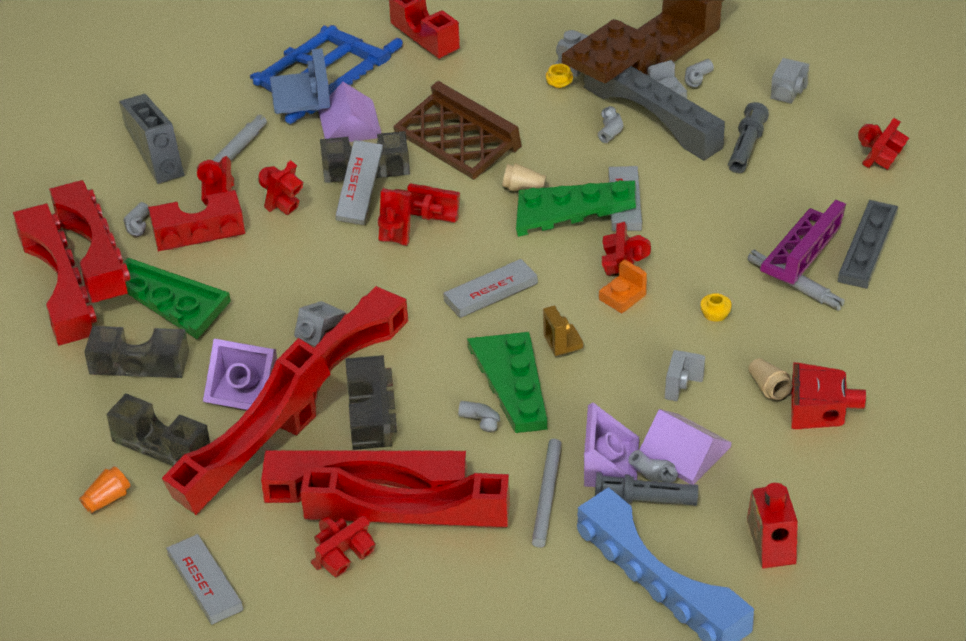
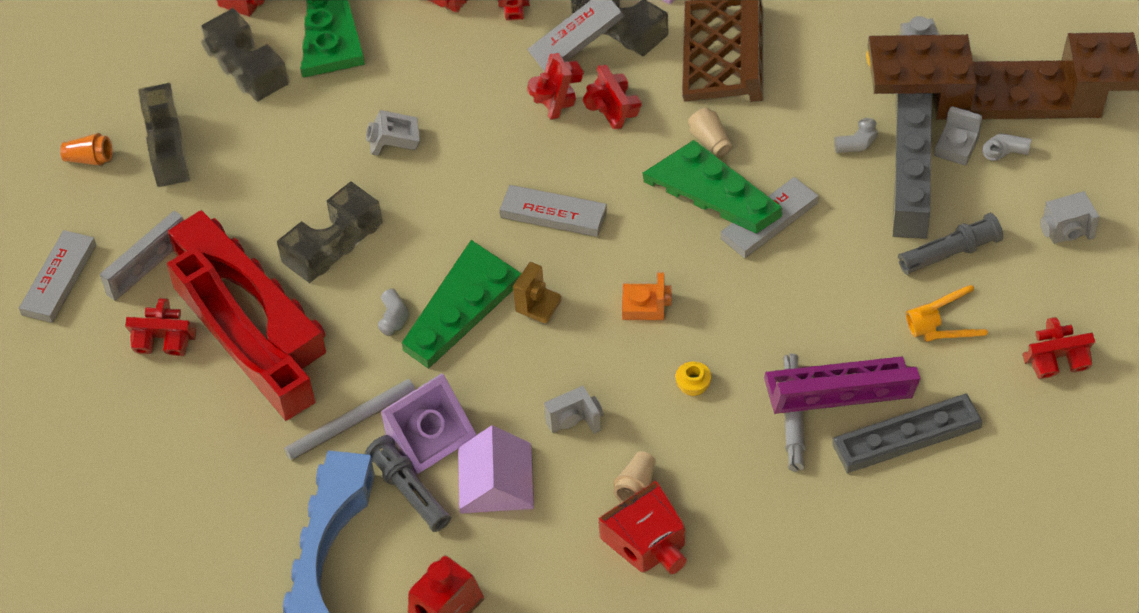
camera: 50 degrees right, 10 degrees up
(206, 471) = (144, 192): red arch -> none
(237, 373) = (276, 137): lavender slope -> none
(257, 514) = (139, 258): none -> light grey tile
(371, 321) = (292, 184): red arch -> none
(622, 247) = (690, 265): red hips -> none
(653, 469) = (447, 478): light grey arm -> none
(792, 181) = (926, 318): none -> light orange plant

